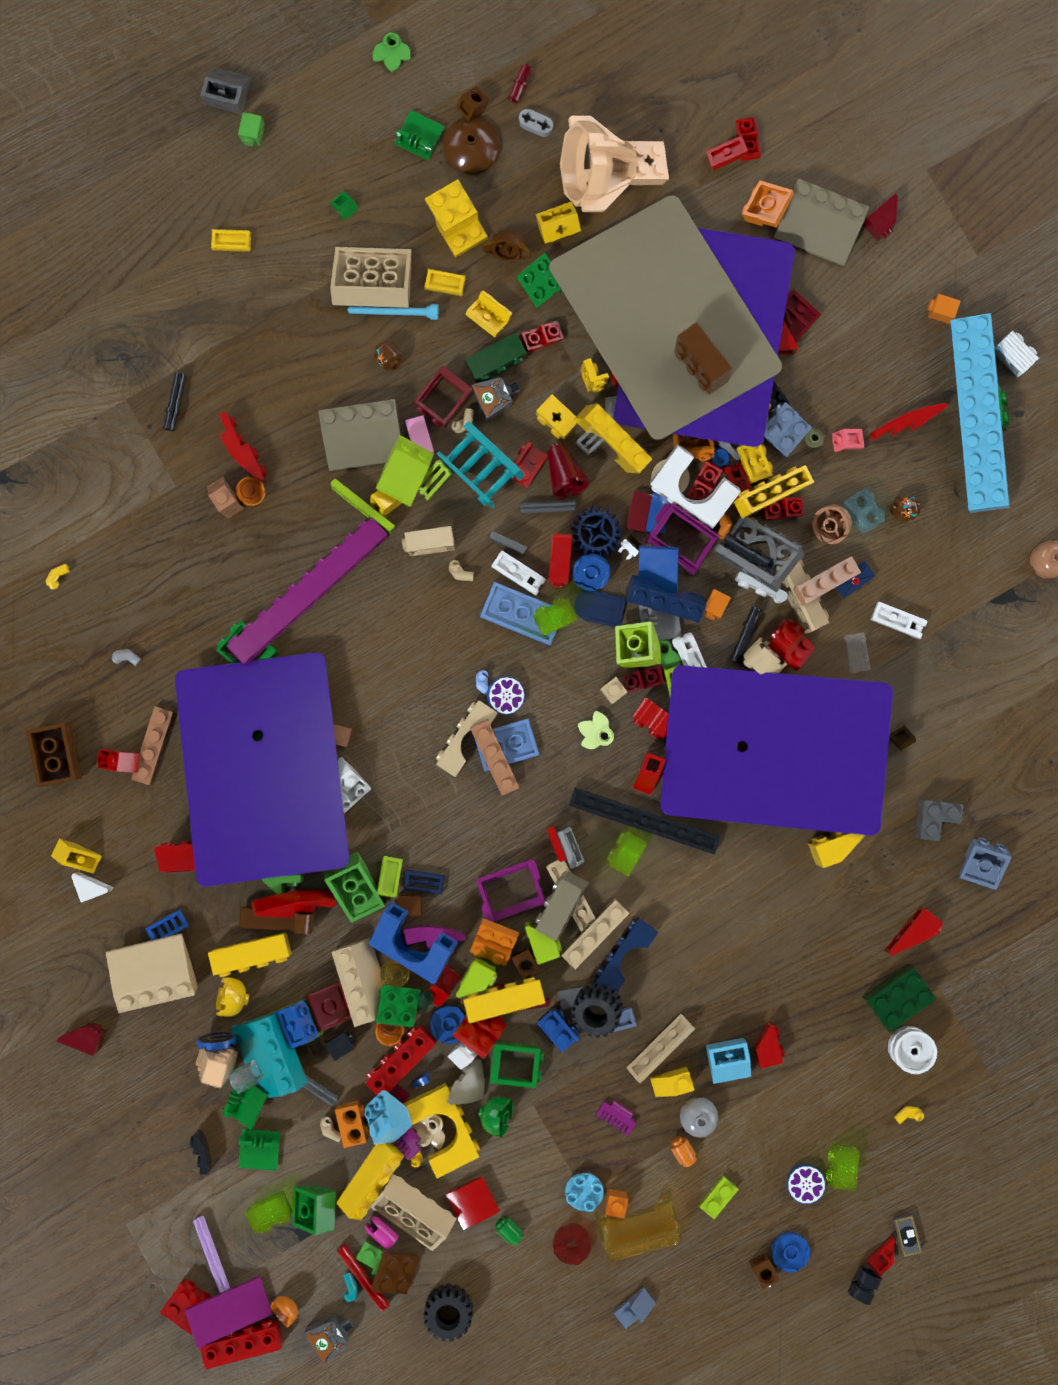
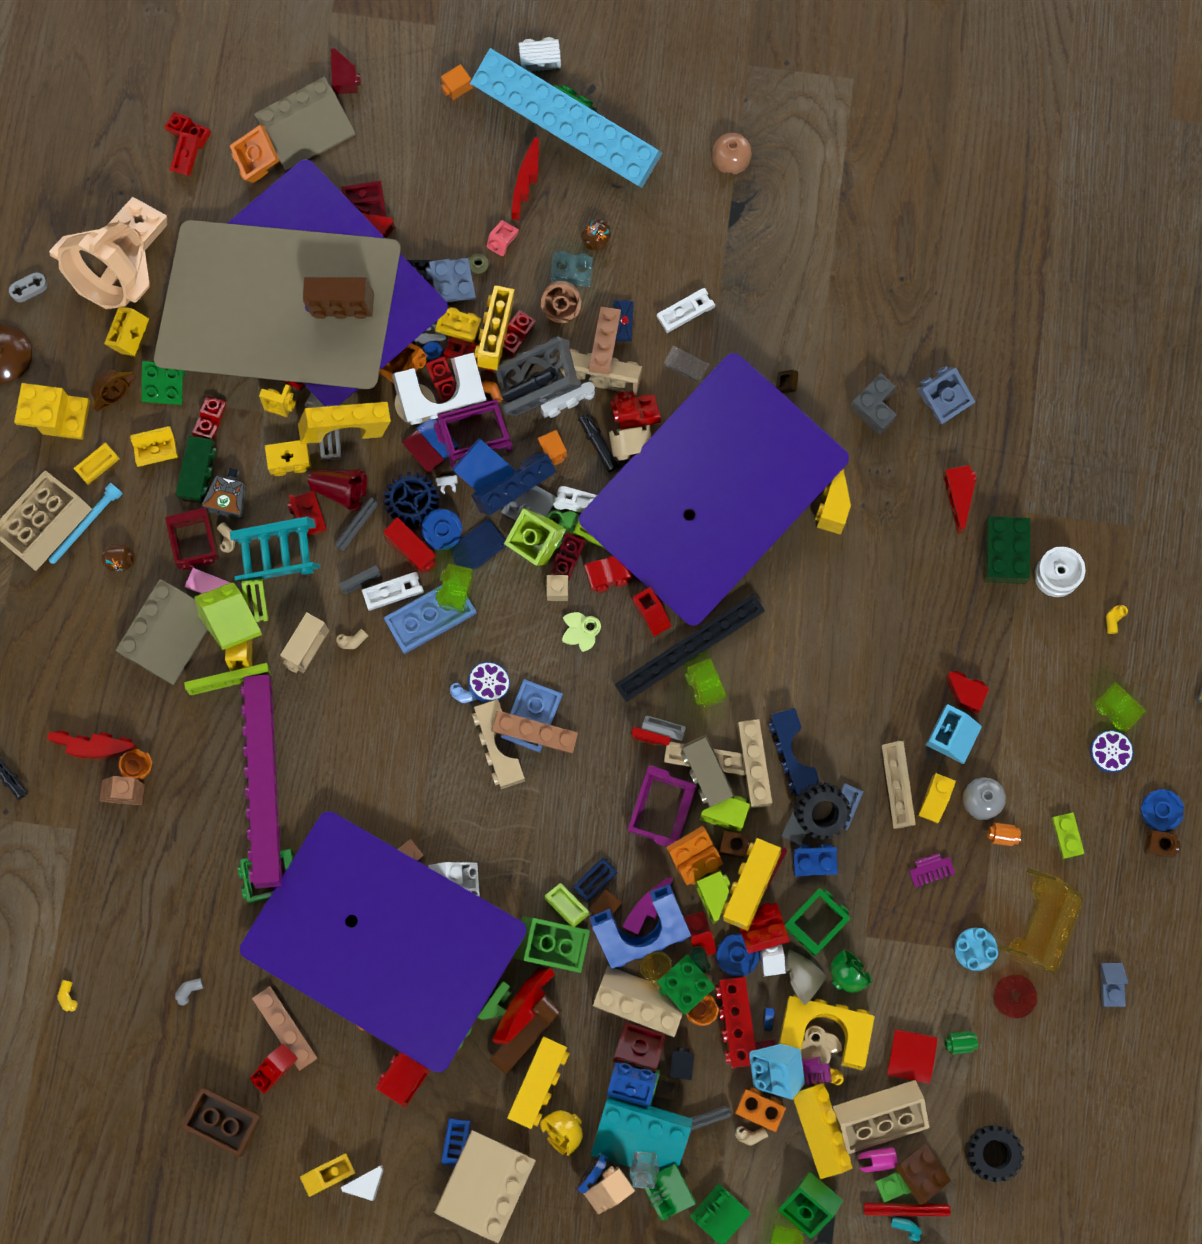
camera: 50 degrees left, 10 degrees down
(616, 1203) = (1006, 927): orange brick -> none

